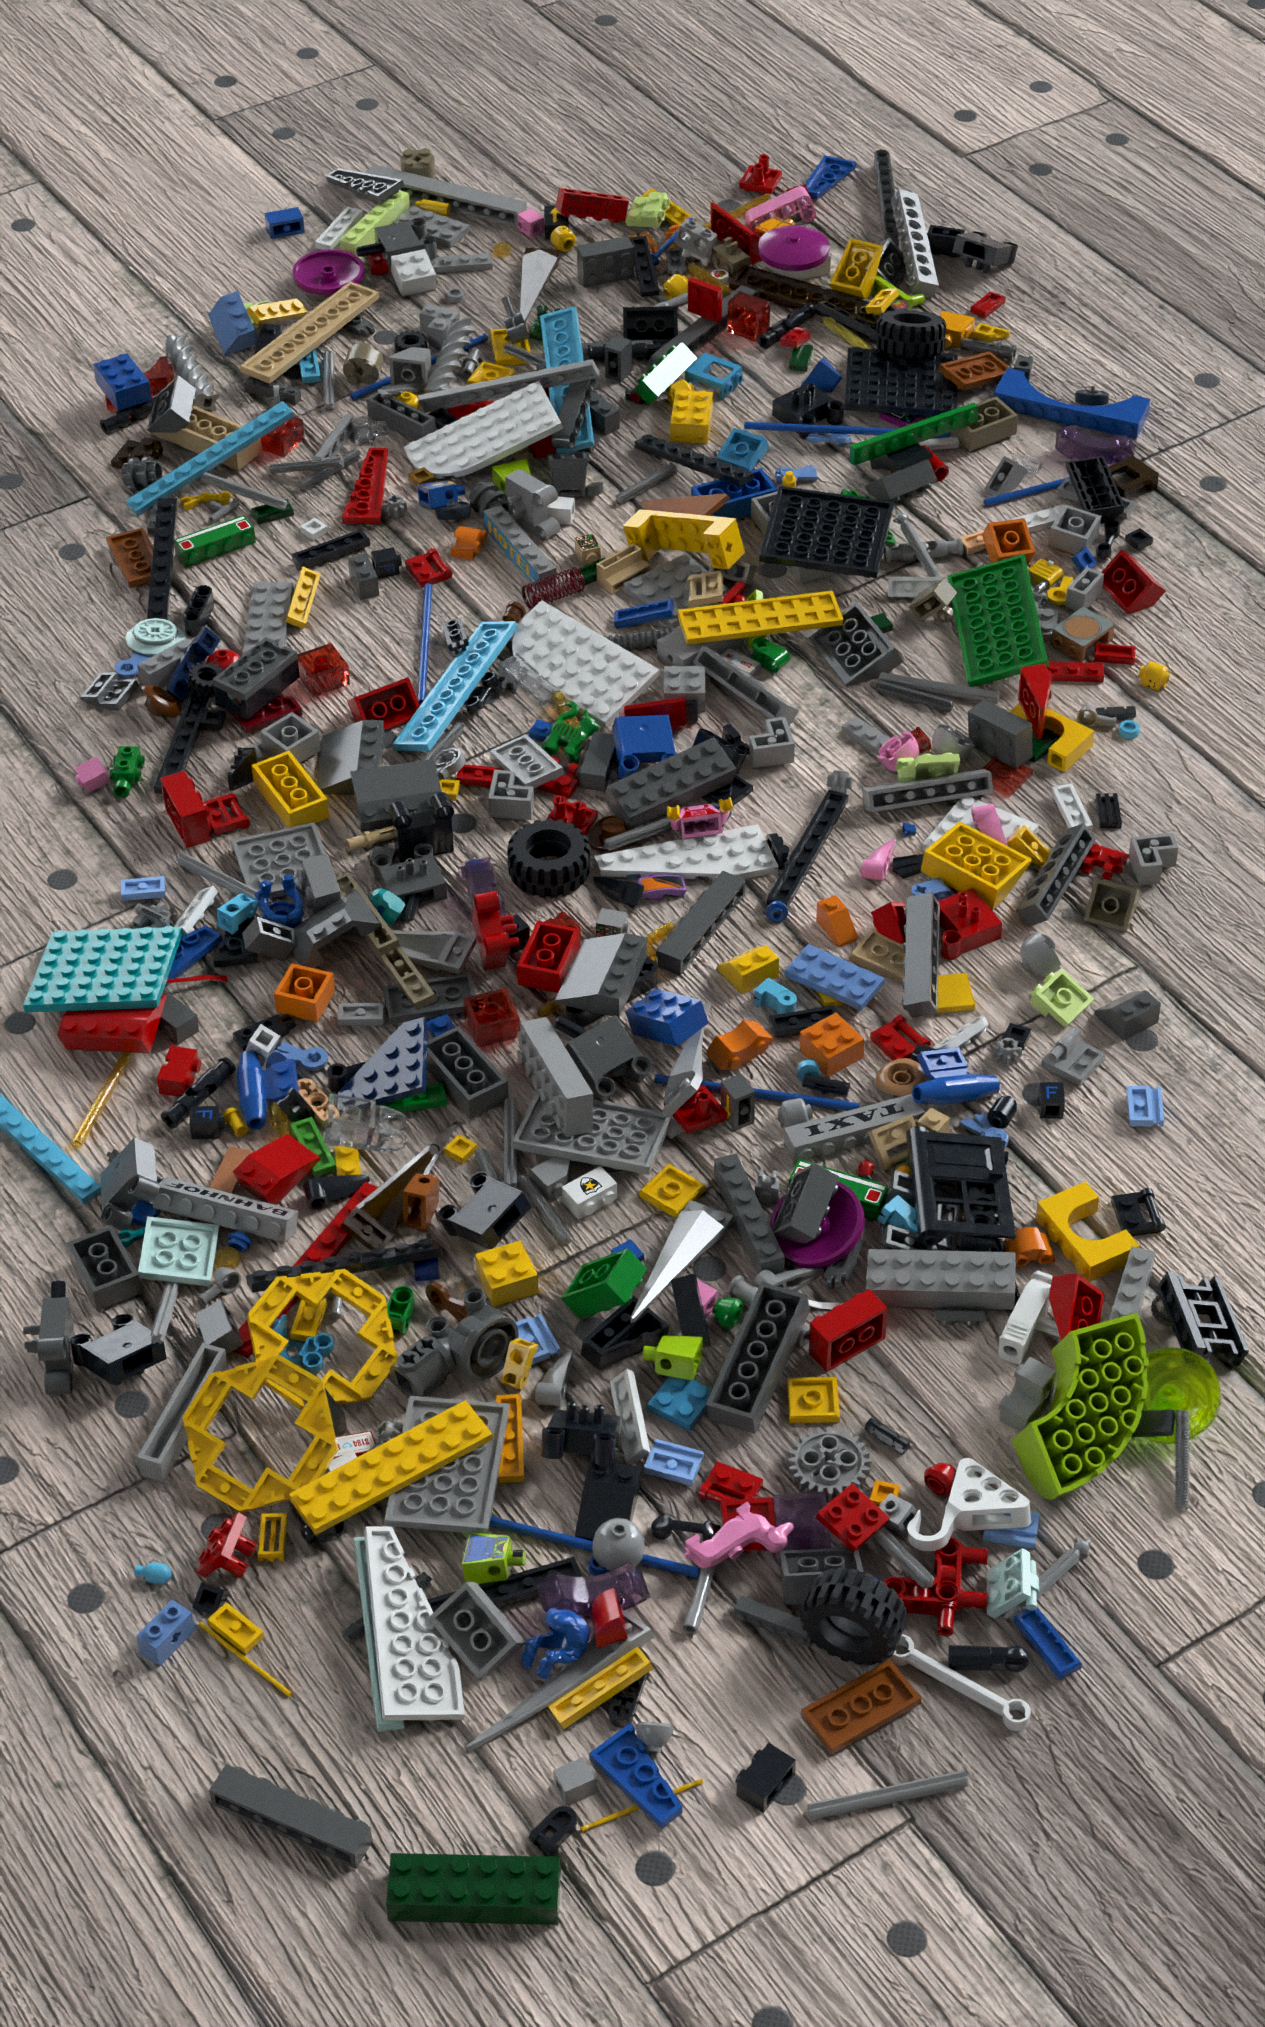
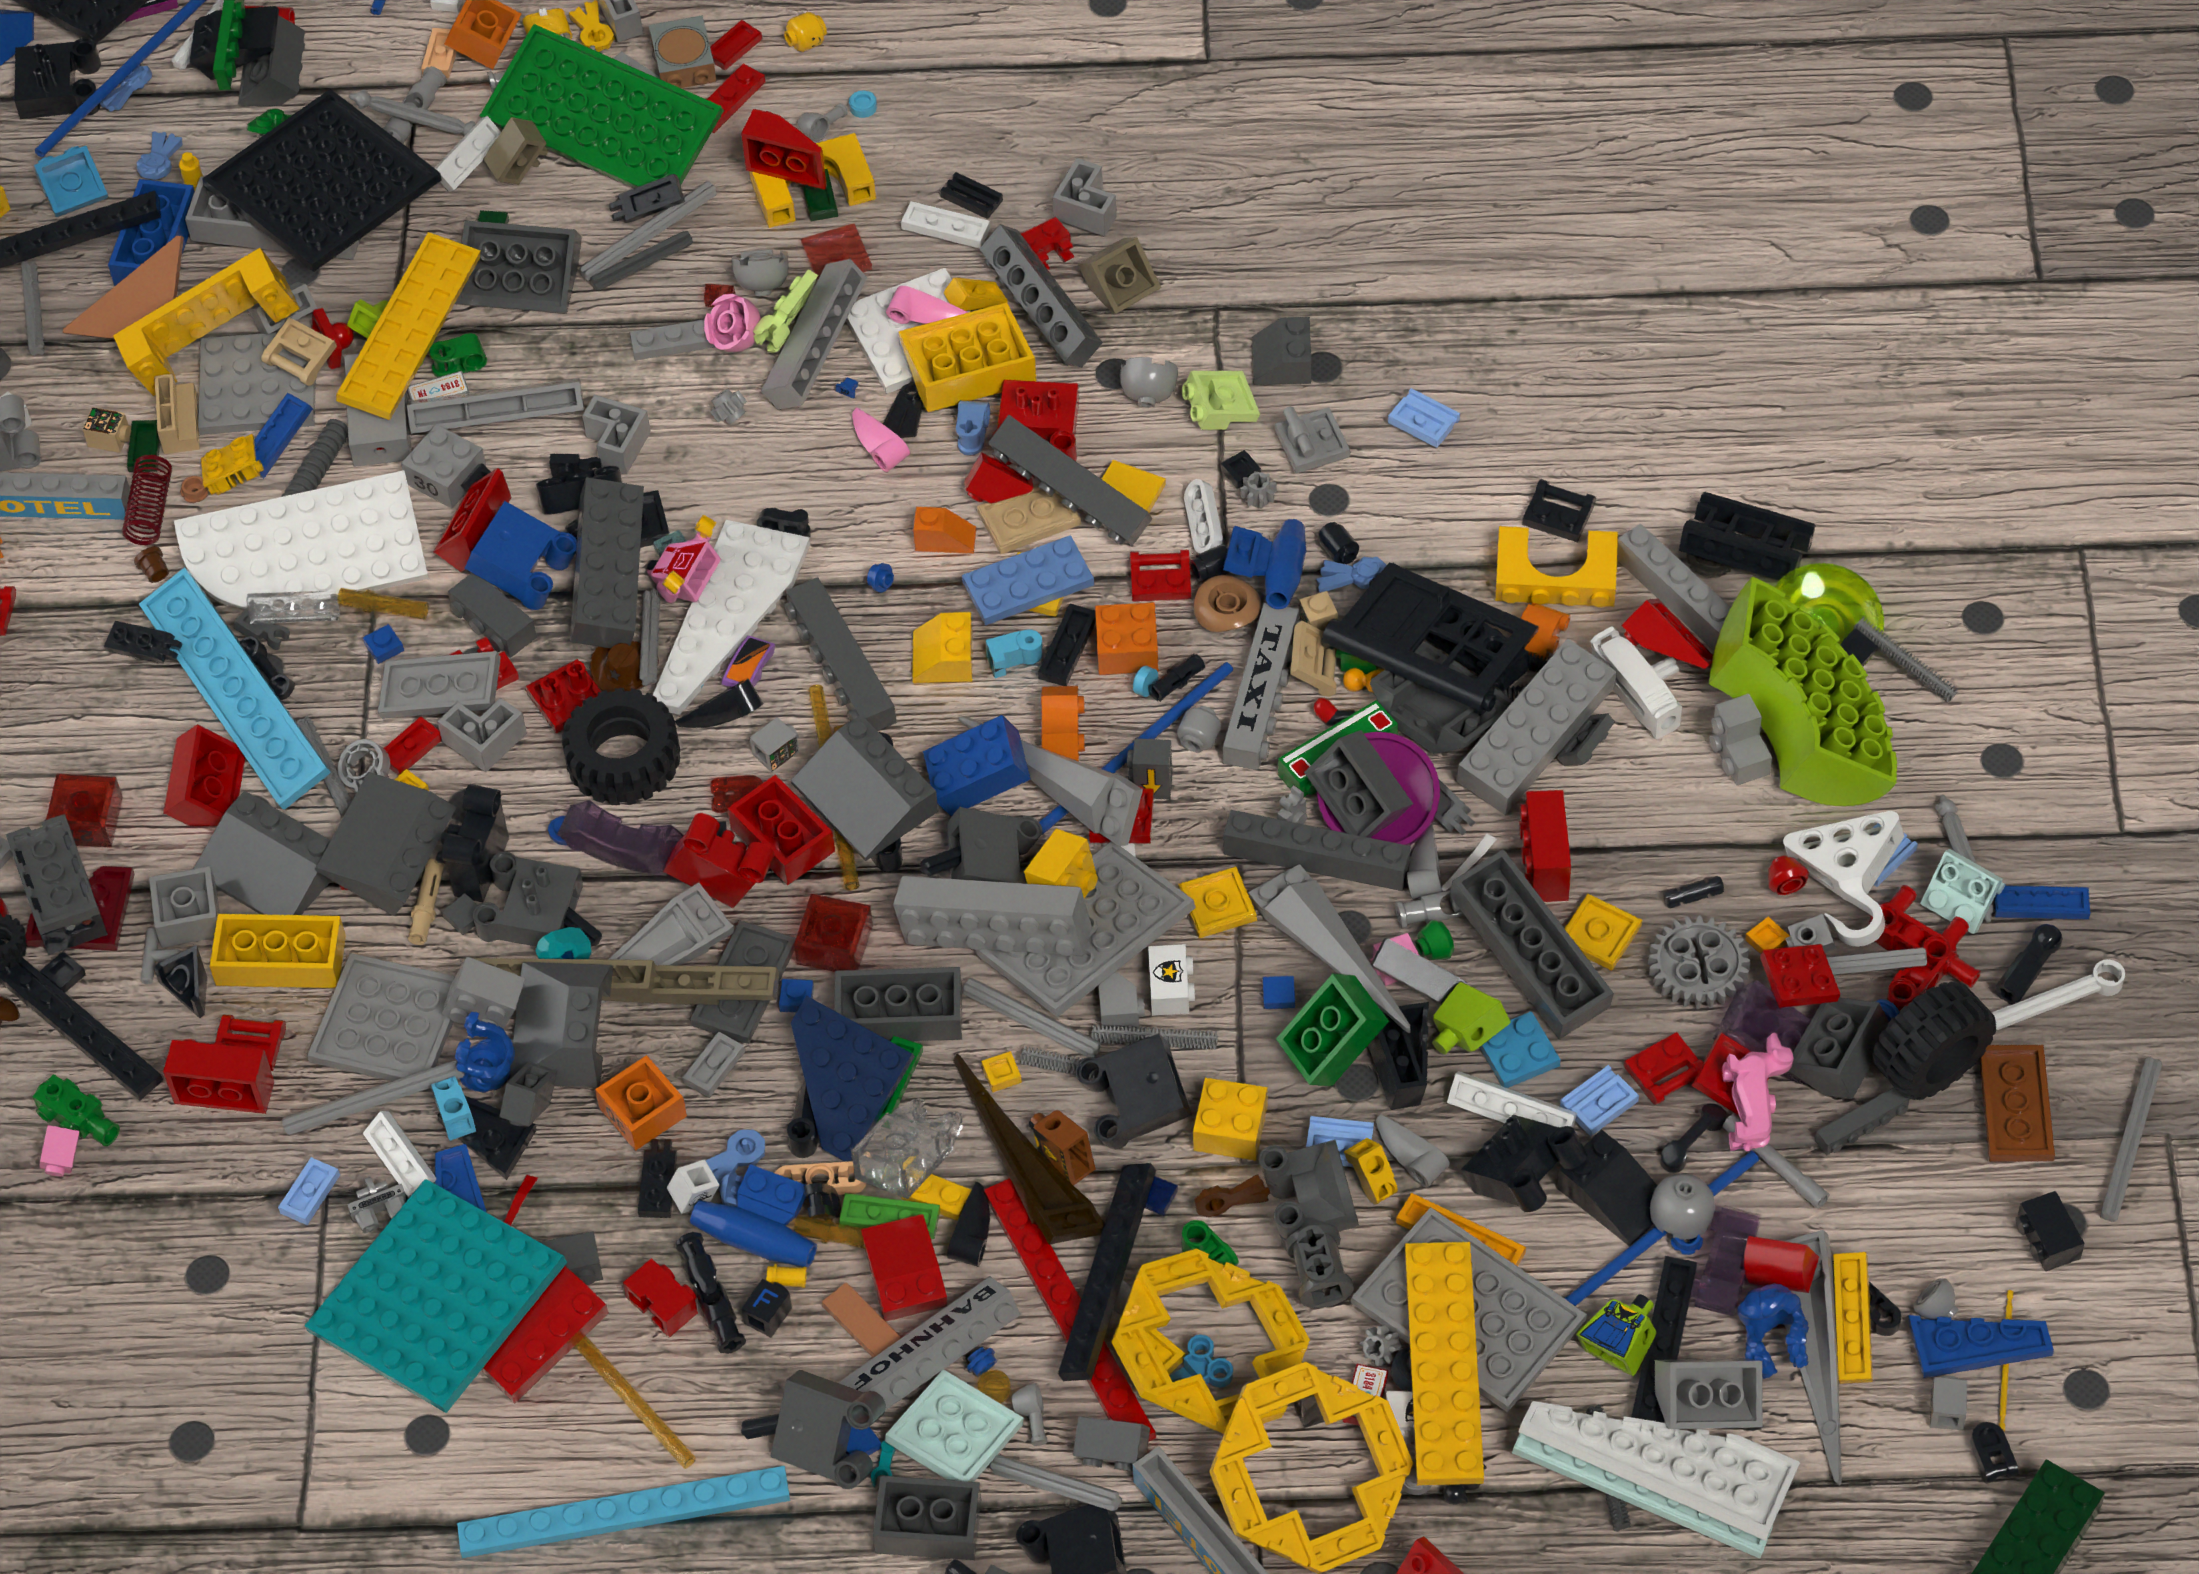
camera: 55 degrees left, 10 degrees up
(272, 1554) = (1411, 1534): yellow tile -> none
(424, 643) = (108, 677): blue piece -> none
(570, 737) = (427, 621): green animal -> none
(580, 604) = (192, 484): none -> nougat plate
(605, 608) = (229, 460): none -> yellow hinge
(613, 1091) = (1063, 862): none -> yellow brick
(808, 848) = (805, 494): black plate -> none
(899, 1214) = (1430, 712): medium azure leg -> none
(957, 672) = (648, 199): none -> black hinge
(1000, 734) = (791, 216): dark grey brick -> none
(1051, 1100) = (1355, 491): black brick -> none
(1117, 712) = (830, 96): dark grey axle -> none

